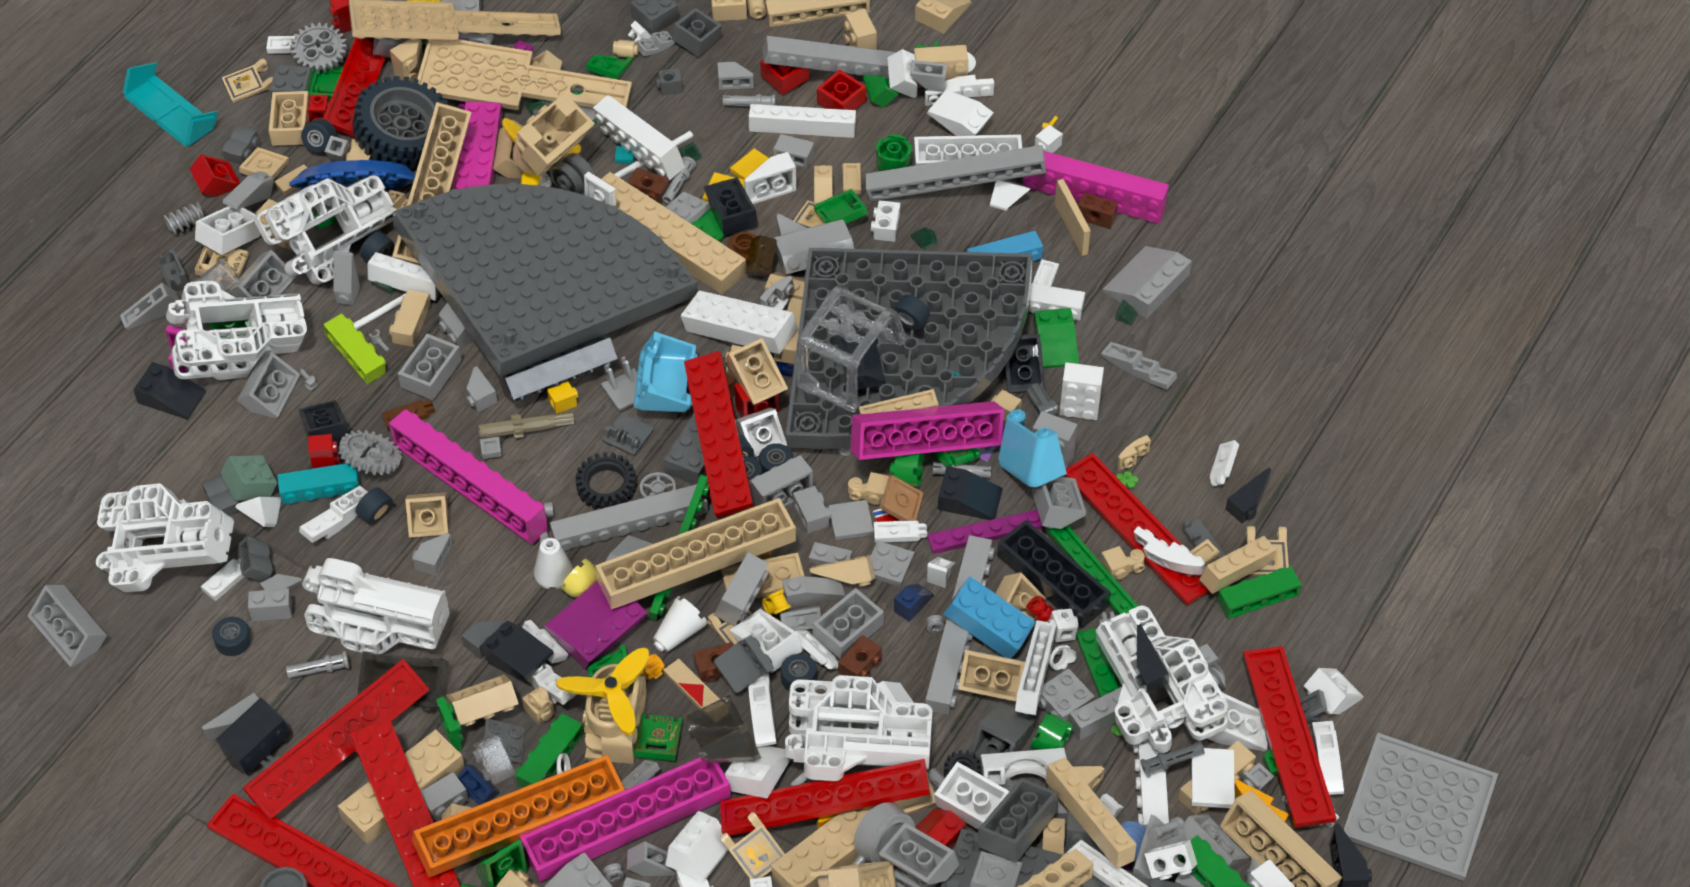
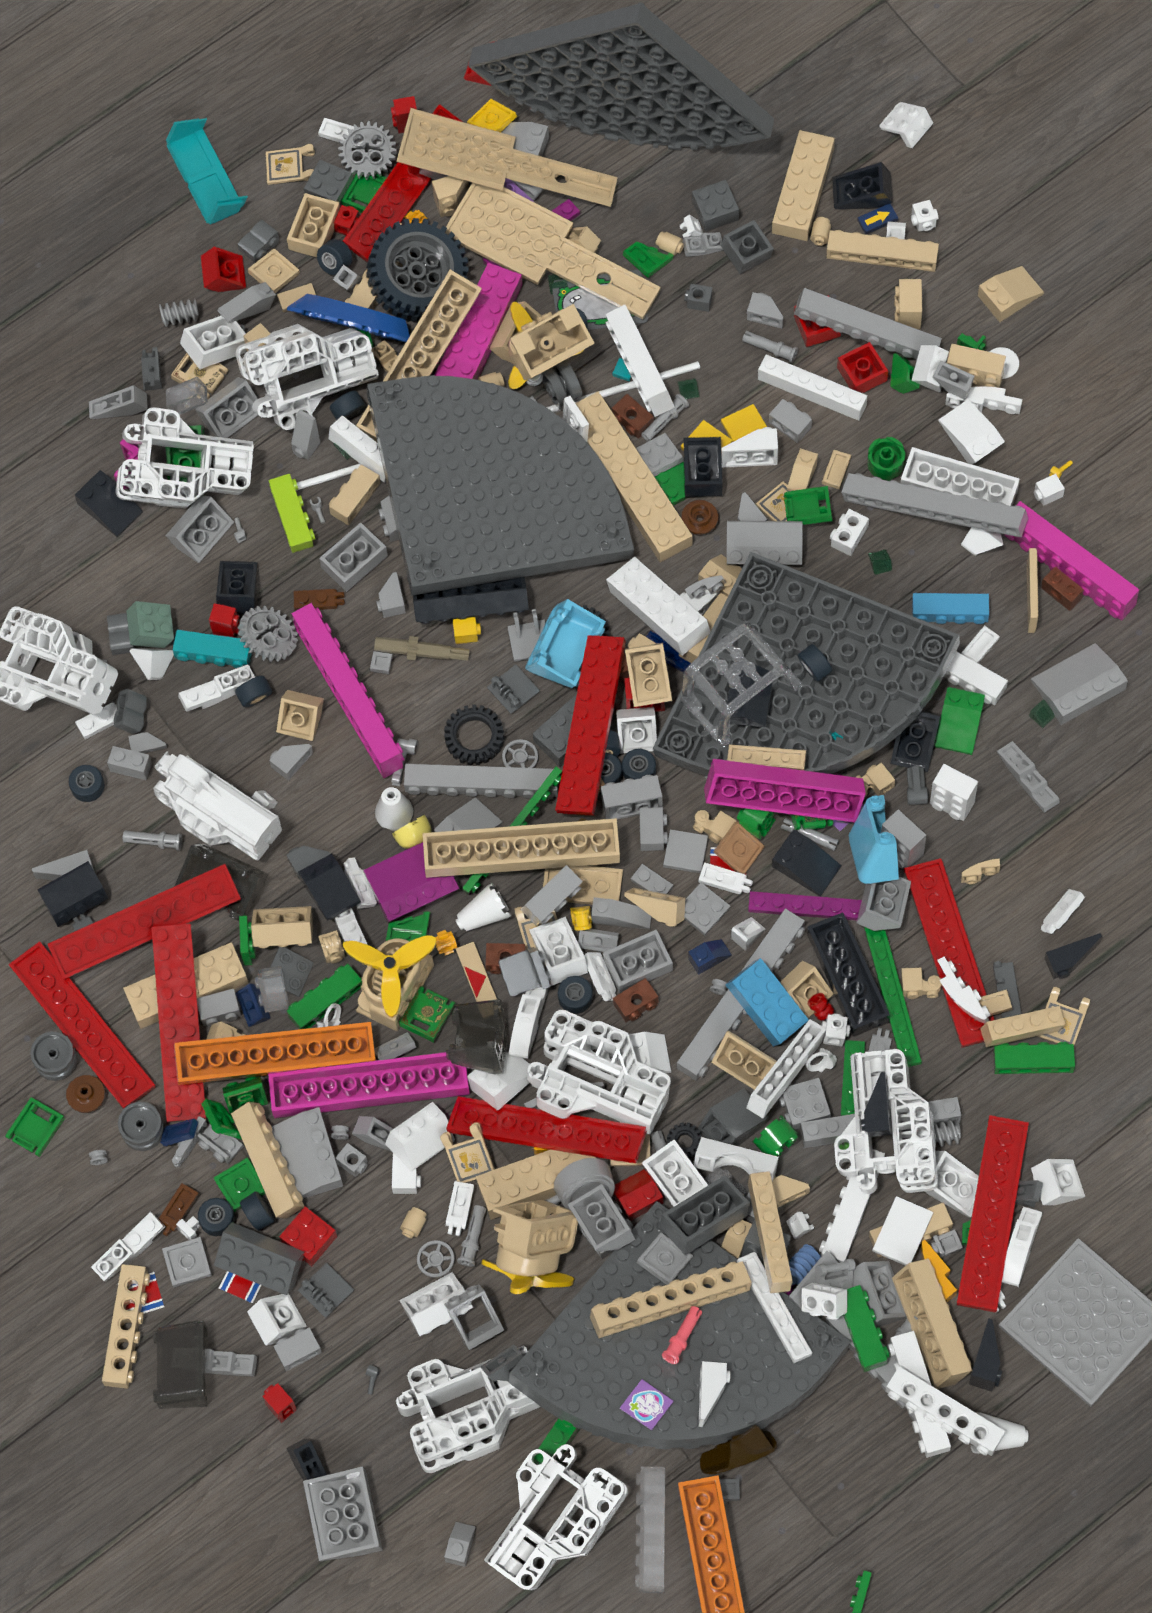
camera: 25 degrees right, 15 degrees up
(761, 256) = (708, 537): dark brown brick -> none
(1128, 479) = (963, 896): bright green plant -> none
(1161, 761) = (862, 1201): dark grey pin -> none

